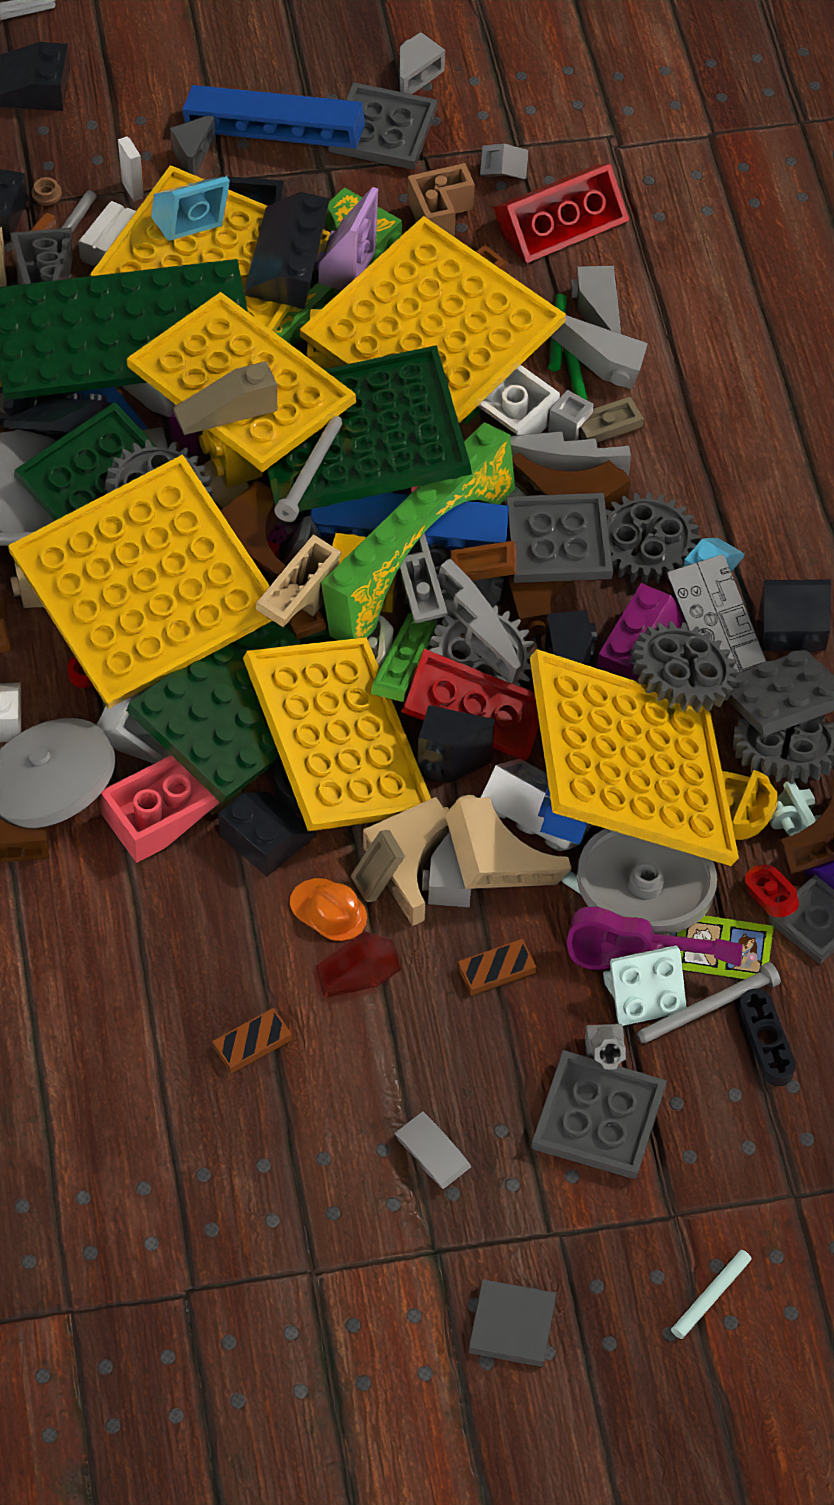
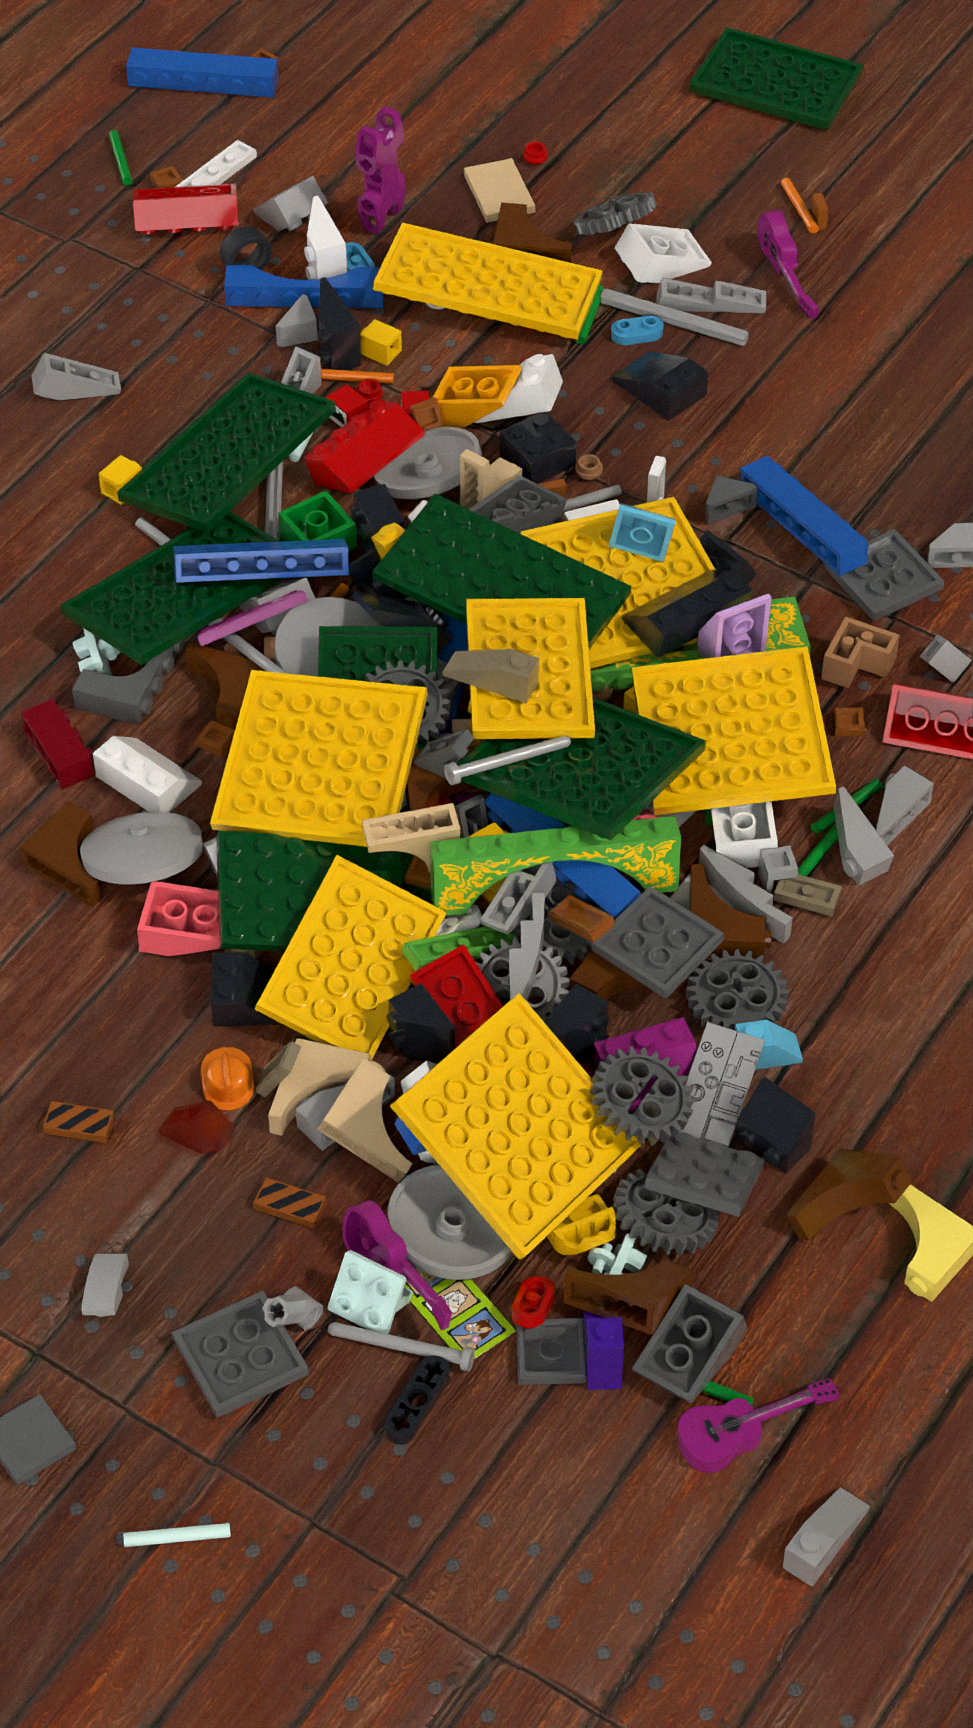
camera: 45 degrees right, 5 degrees down
(250, 500) = (444, 751): none -> dark grey slope

